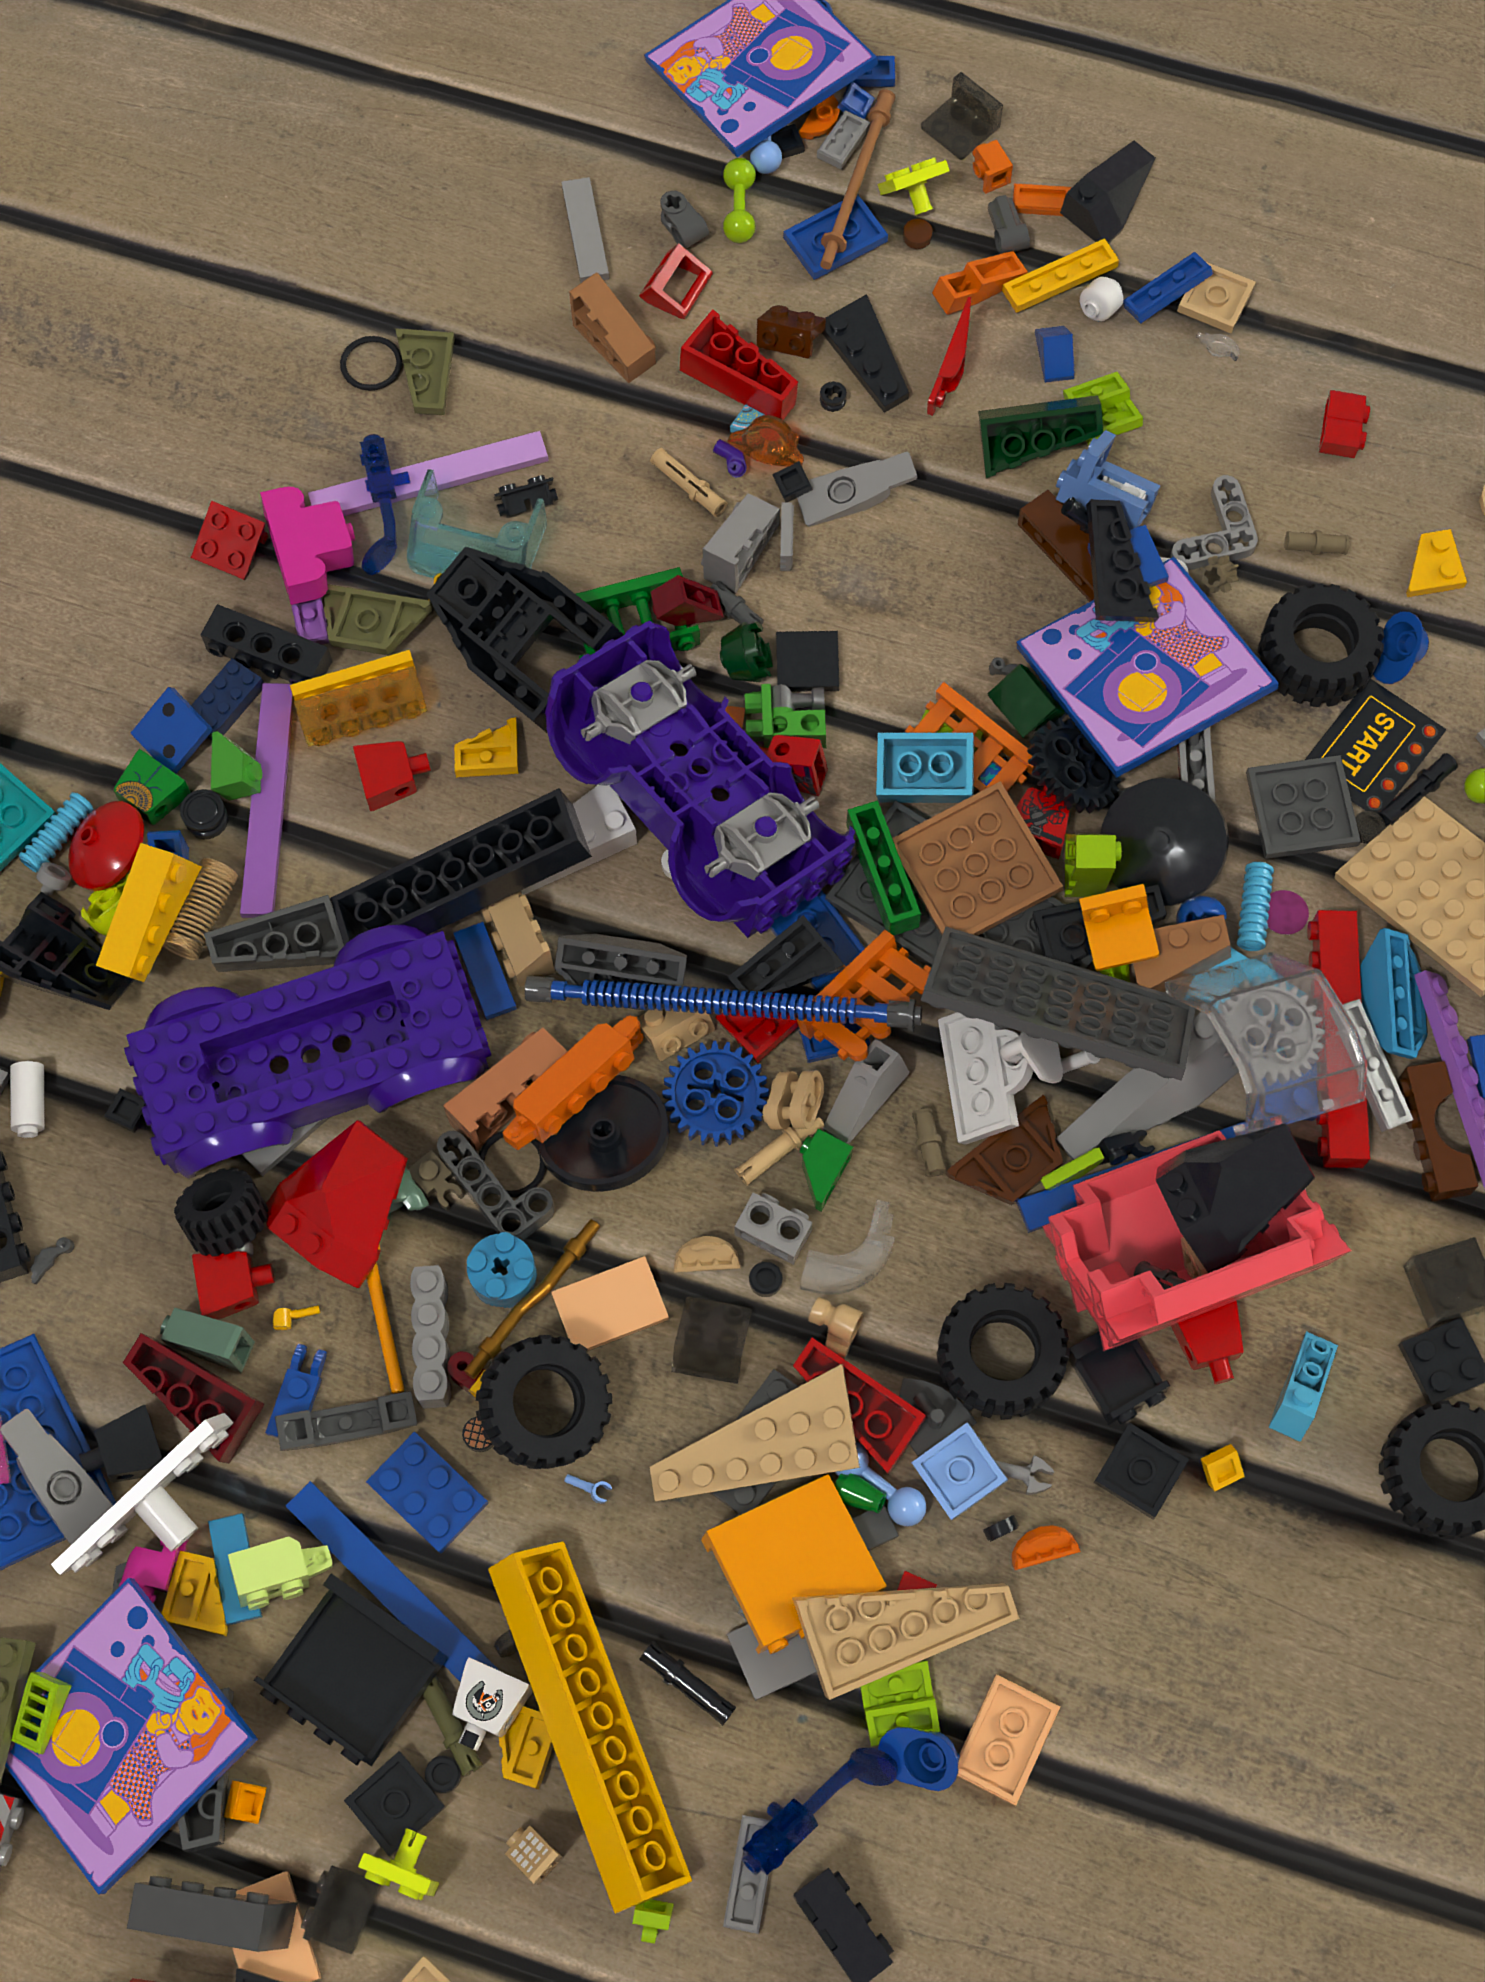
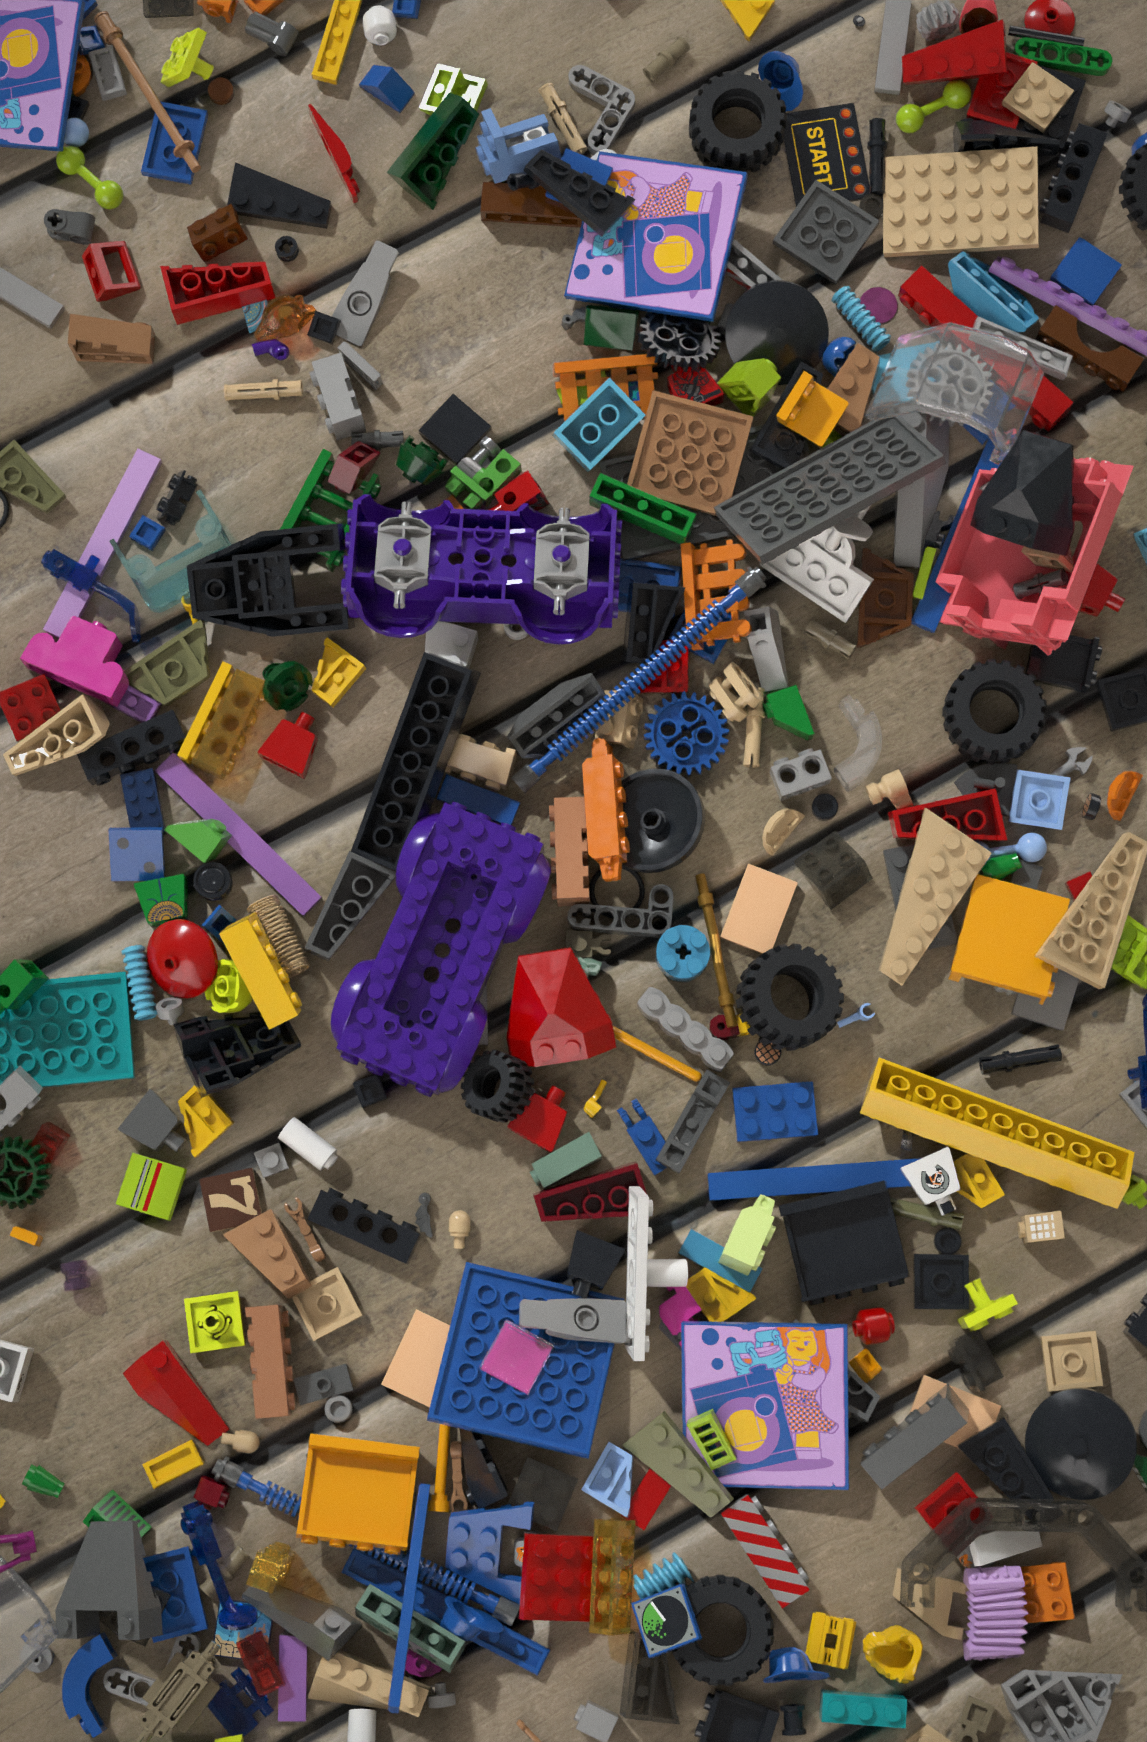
camera: 45 degrees left, 10 degrees up
(61, 1299) = (459, 1227): none -> tan cylinder
(224, 582) = (60, 737): none -> tan wedge
(292, 1774) = (873, 1325): none -> red head
(436, 720) = (286, 685): none -> dark green tile
(473, 502) = (147, 533): none -> blue tile
(978, 280) = (293, 86): orange slope -> none
(1174, 507) = (549, 94): none -> tan pin
(1219, 574) = (633, 135): dark tan gear -> none

